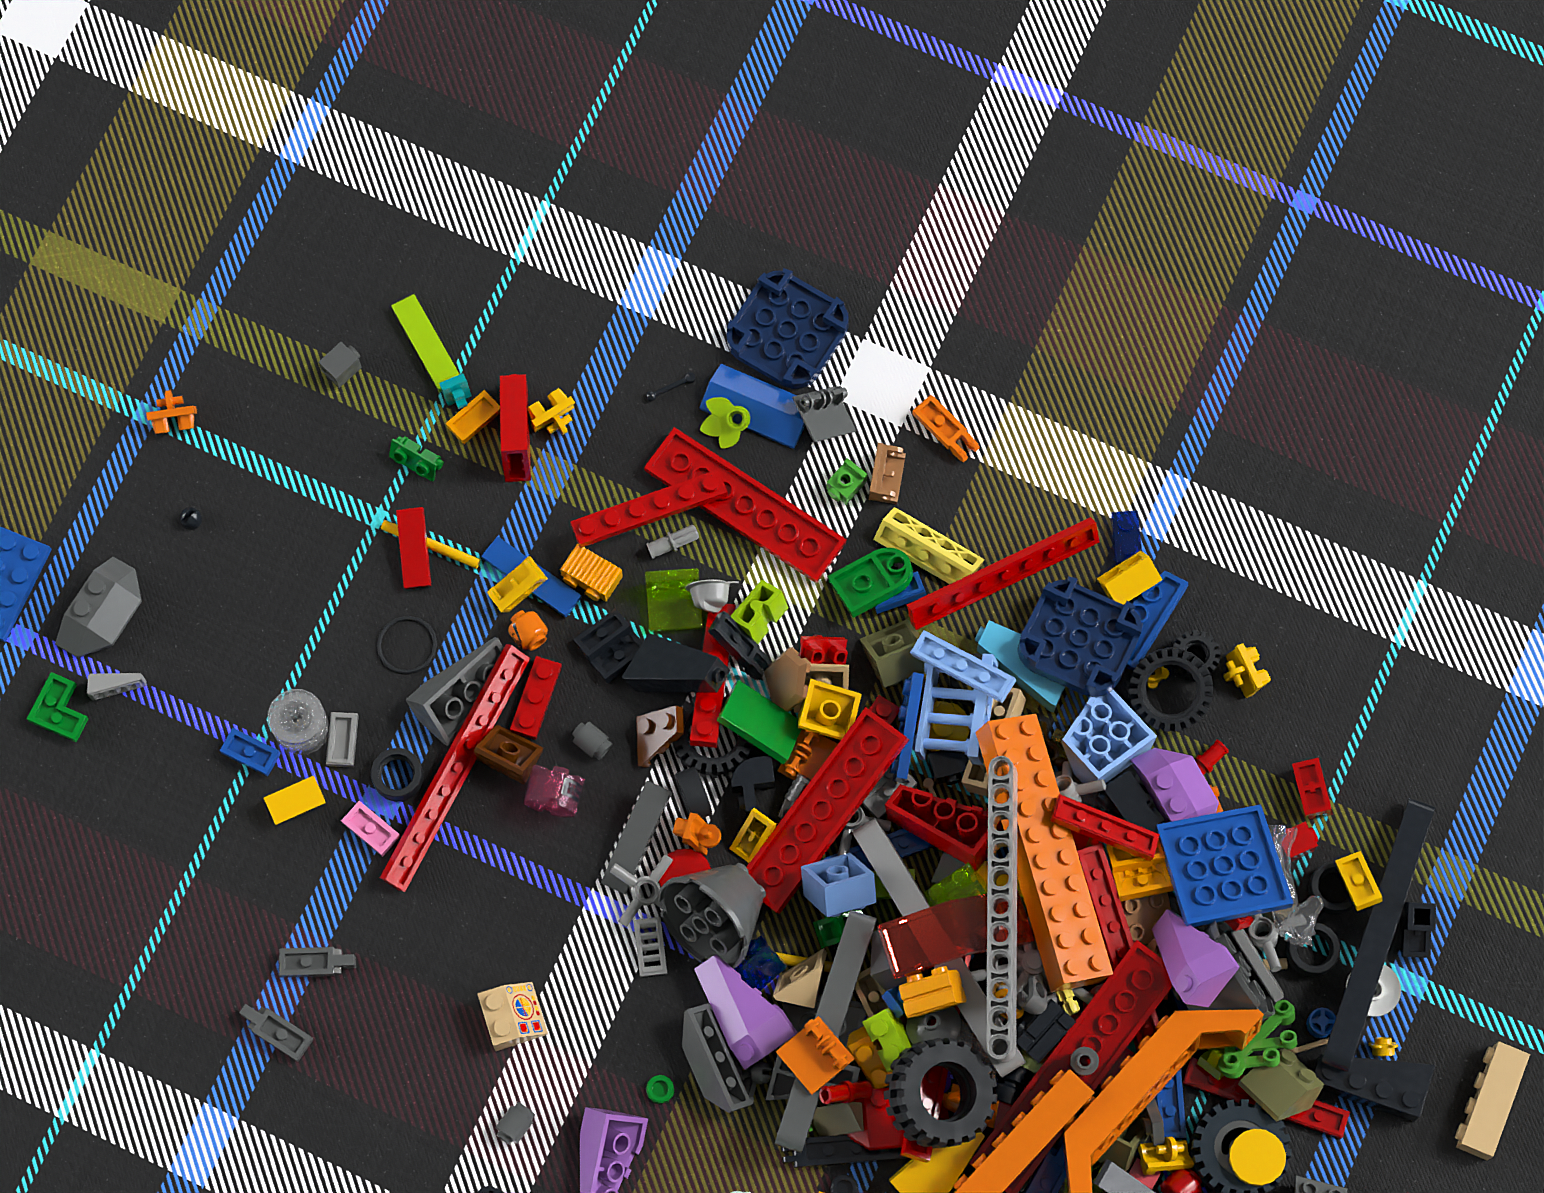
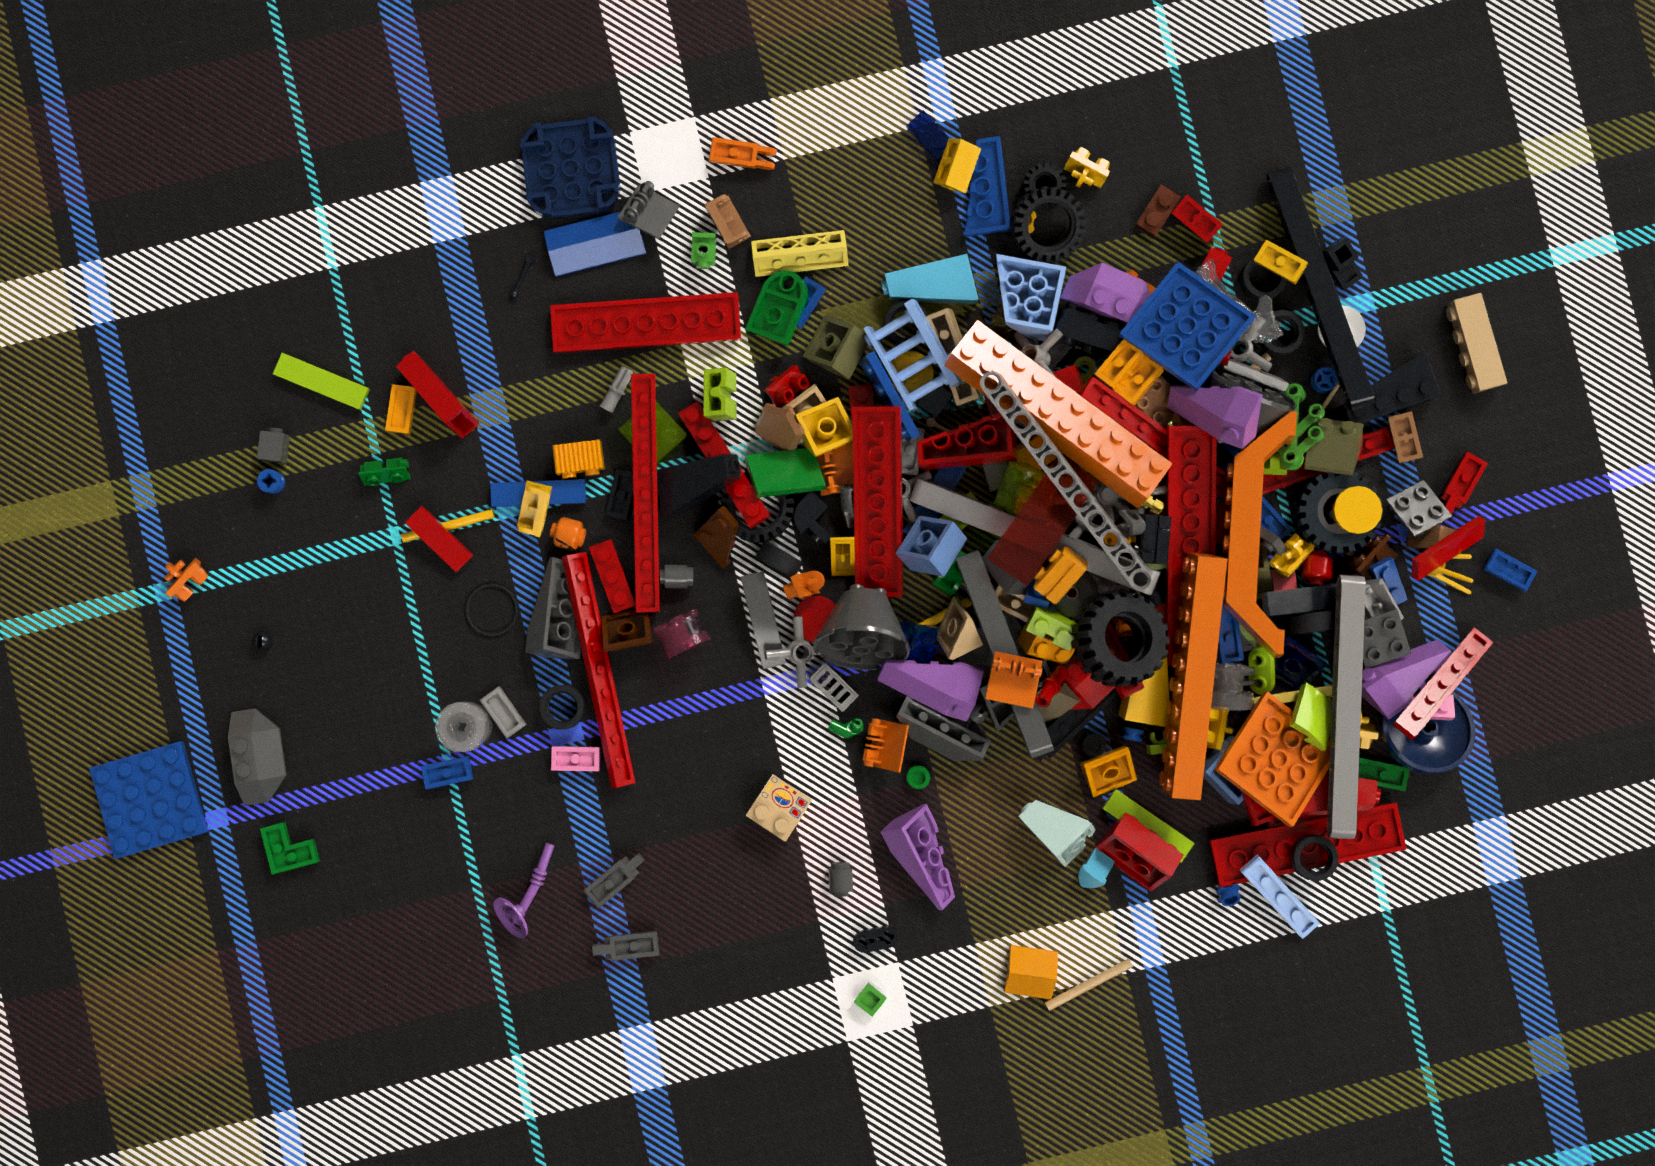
camera: 35 degrees left, 15 degrees up
(109, 684) = (306, 807): light grey slope -> none
(203, 920) = (515, 914): none -> medium lavender dish
(294, 800) = (507, 781): yellow hinge -> none
(313, 397) = (276, 482): none -> blue wheel
(456, 391) = (373, 400): teal tile -> none
(561, 406) = (456, 352): yellow hips -> none
(622, 644) = (645, 492): none -> red plate
(631, 995) = (848, 729): none -> green arm
(649, 508) = (582, 380): red plate -> none
(655, 1034) = (886, 745): none -> orange hinge
(710, 594) = (678, 410): light grey piece -> none
(721, 421) = (579, 274): lime plate -> none
(739, 645) = (725, 429): black hinge -> none
(963, 666) = (897, 324): light blue tile -> none
(1003, 573) = (867, 231): red plate -> none
(1077, 1067) = (1191, 536): dark grey brick -> none
(1079, 638) = (958, 237): dark blue tile -> none
(1104, 827) = (1088, 364): red tile -> none
(1211, 757) = (1110, 250): red pin -> none
(1282, 756) = (1157, 211): none -> copper plate
(1358, 1133) = (1405, 437): none -> medium nougat hinge
(1383, 1046) = (1377, 363): yellow plate -> none

